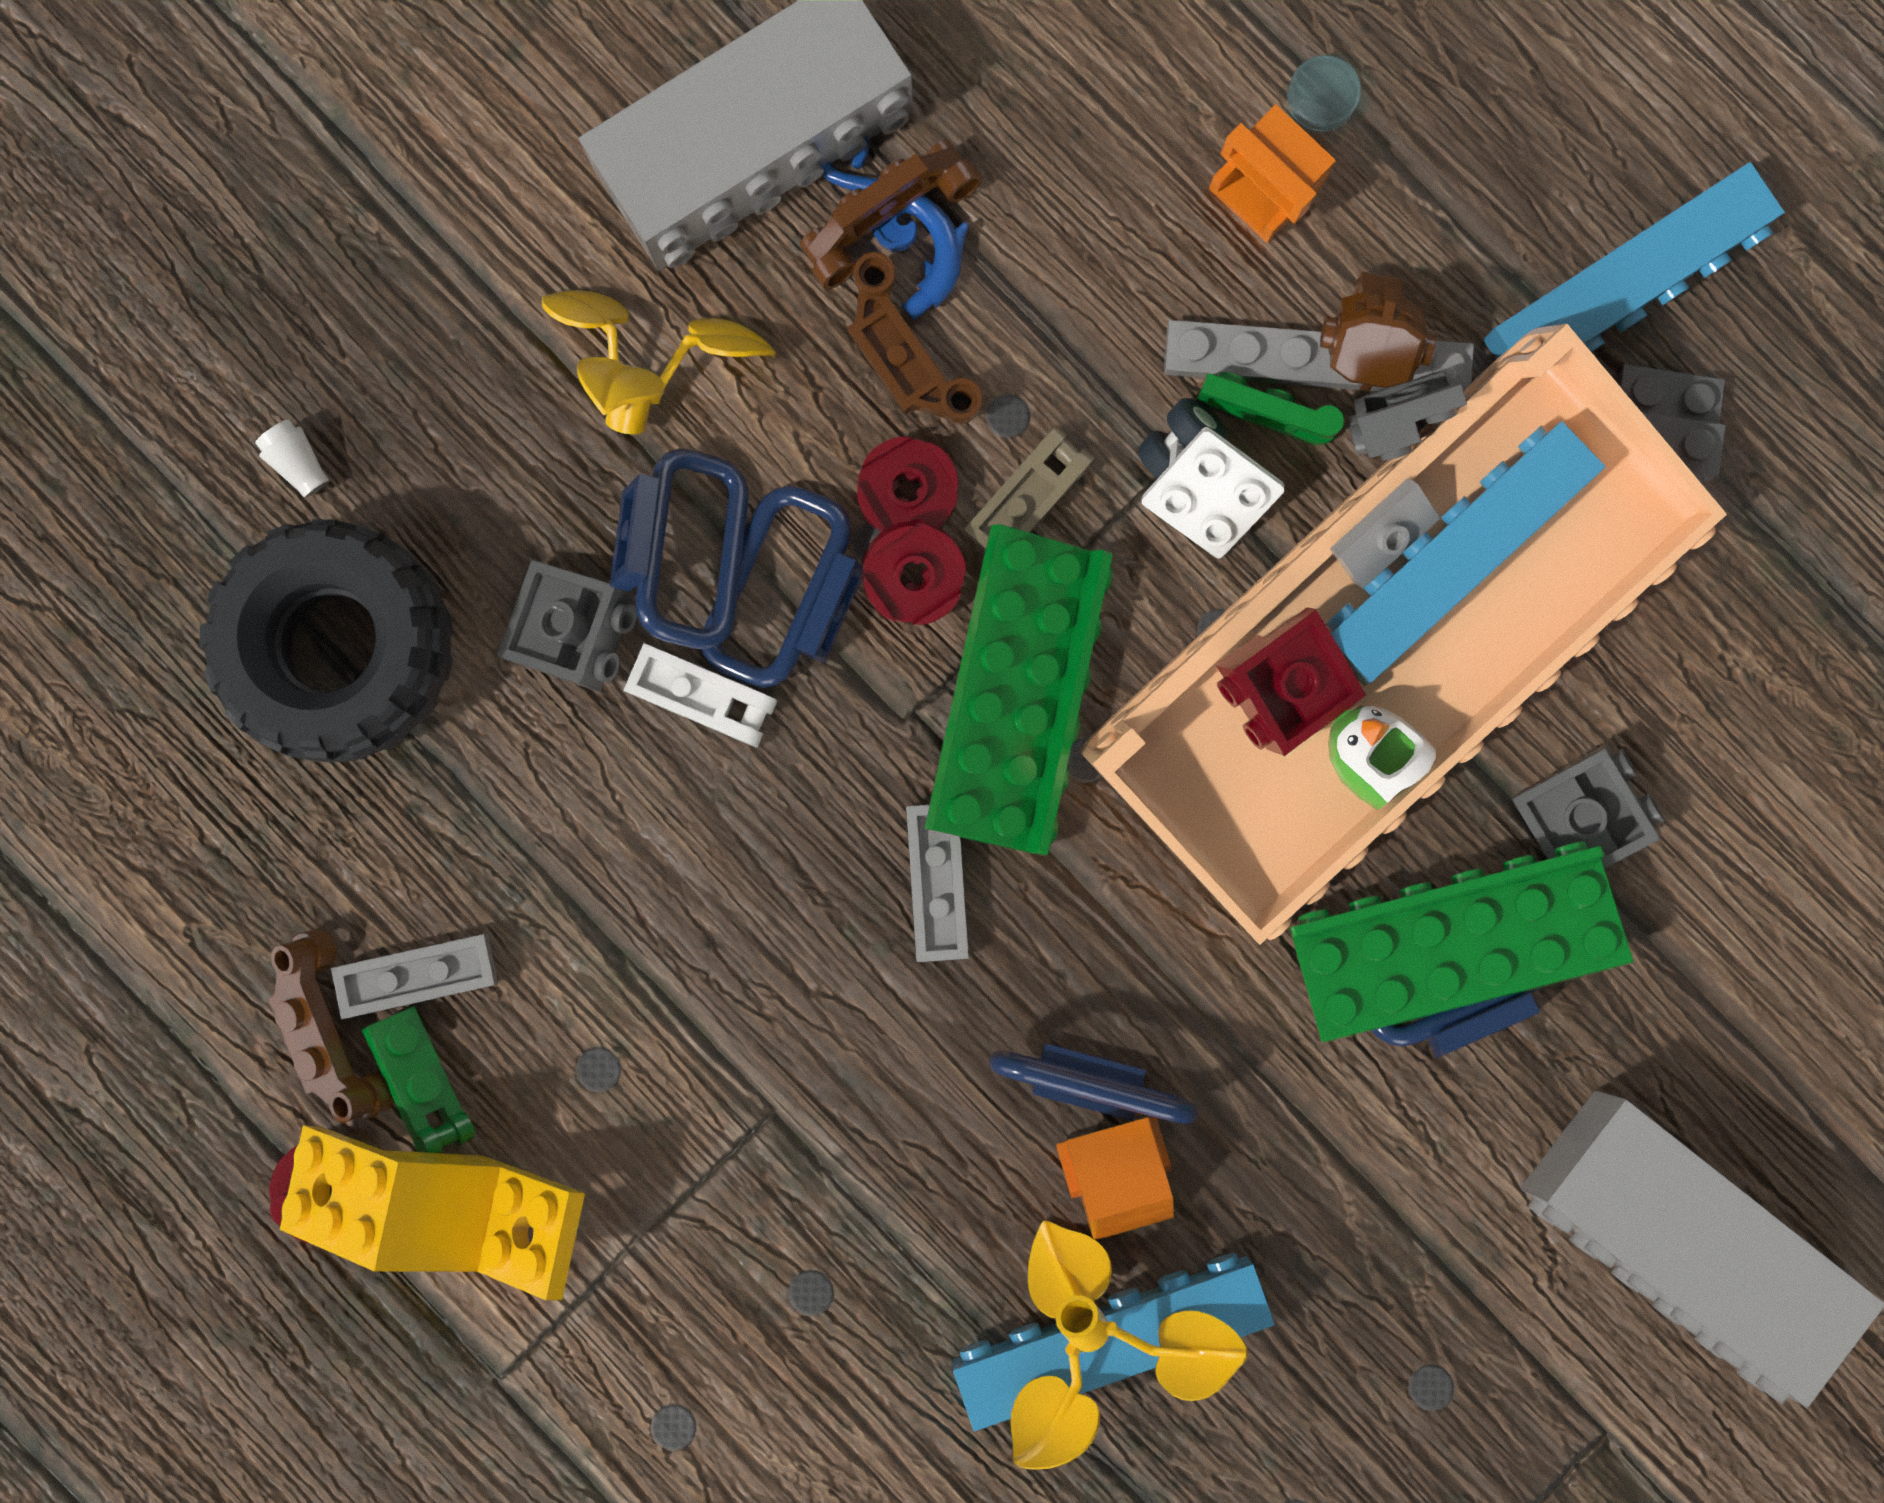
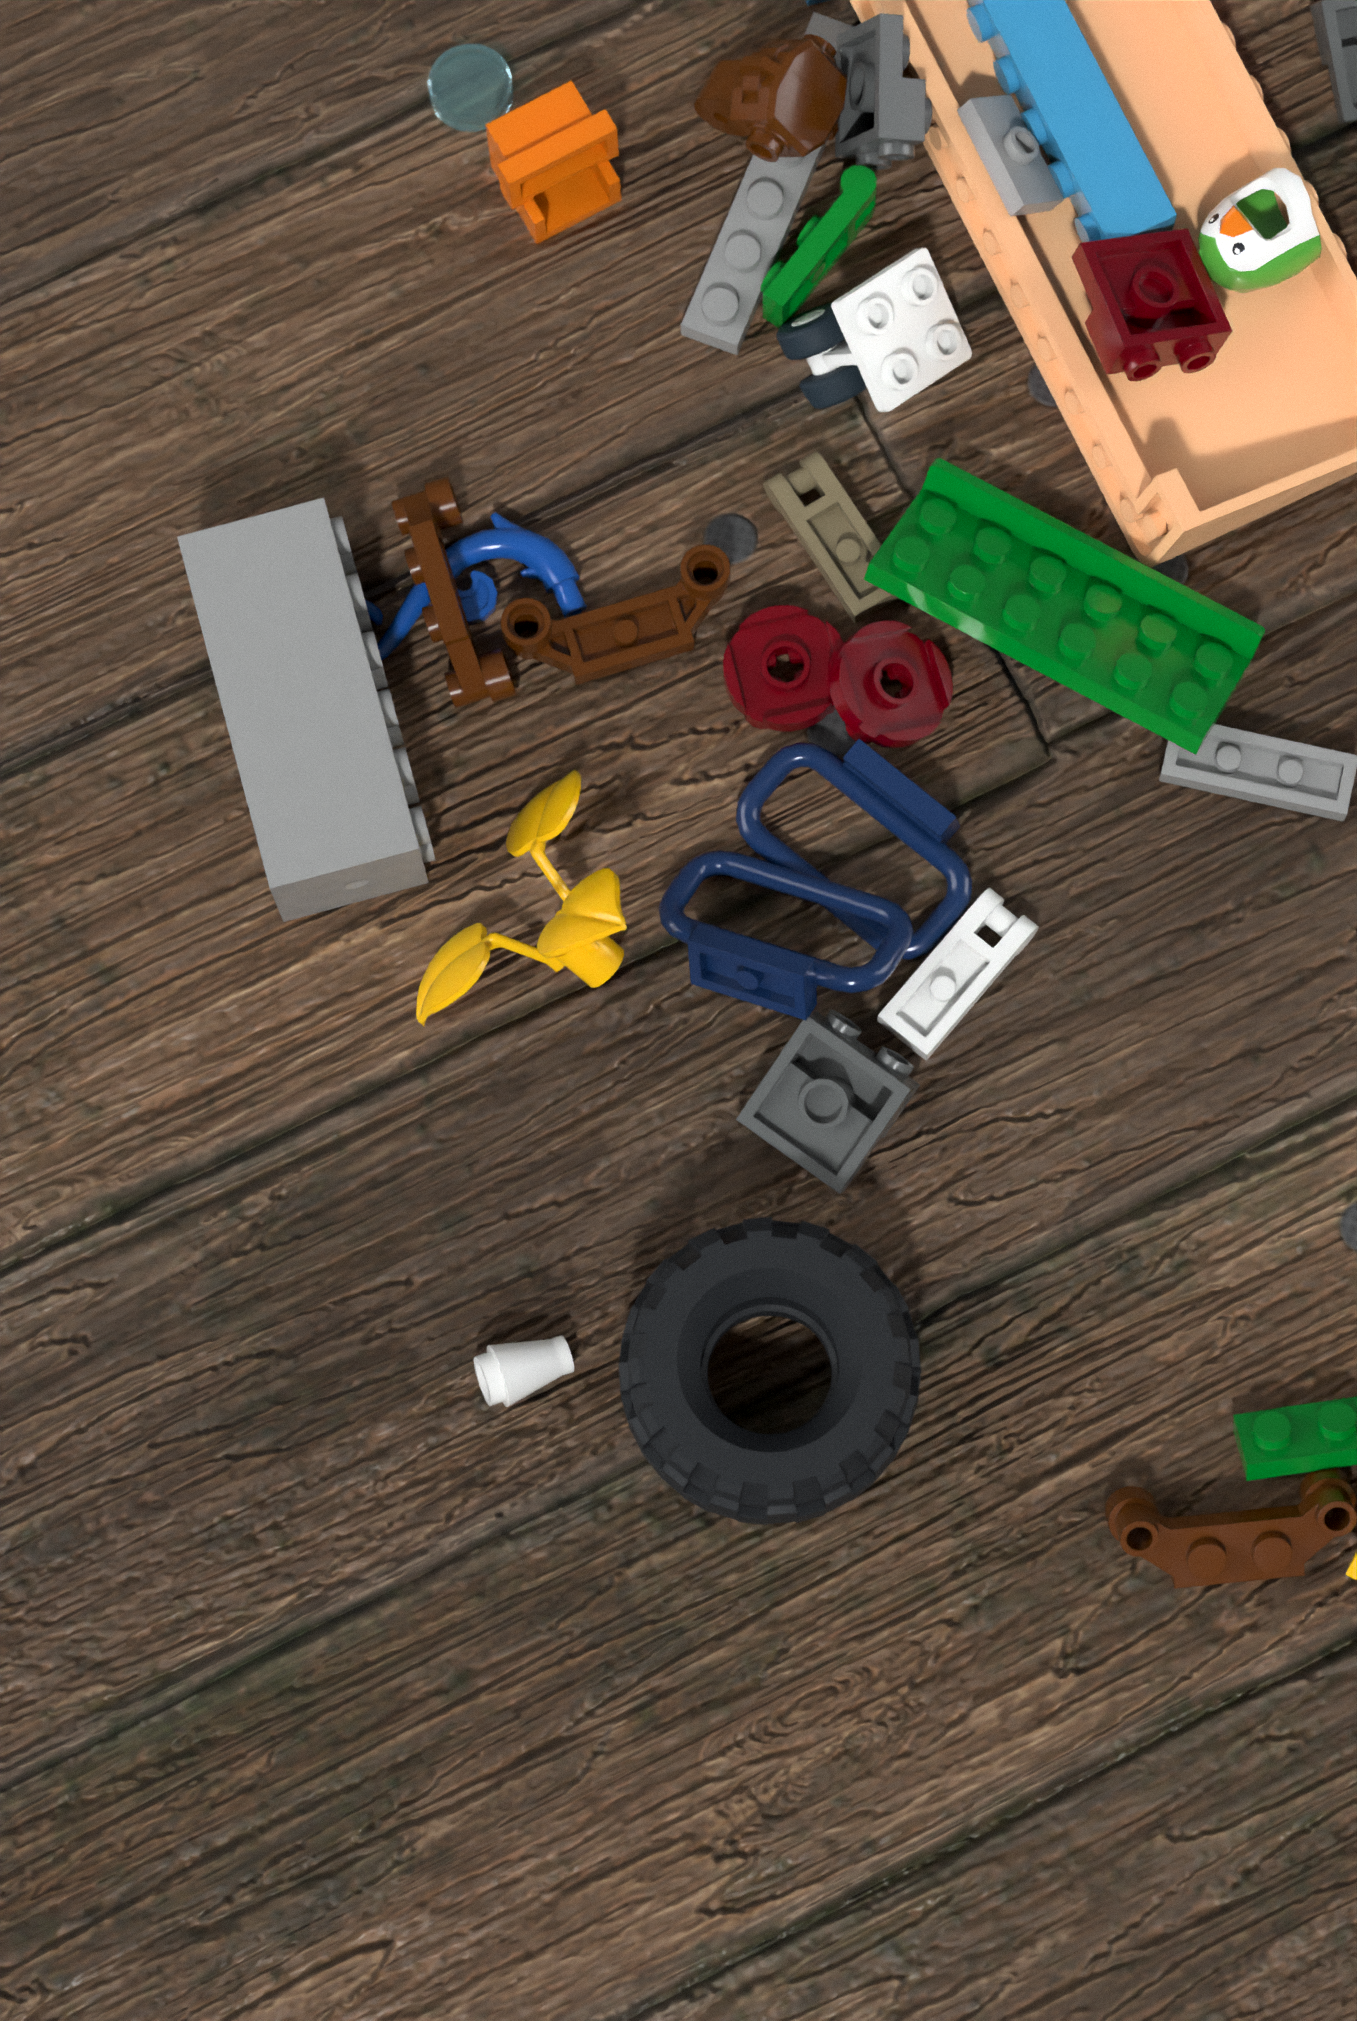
camera: 70 degrees left, 10 degrees down
(414, 976) = (1198, 1402): light grey plate -> none

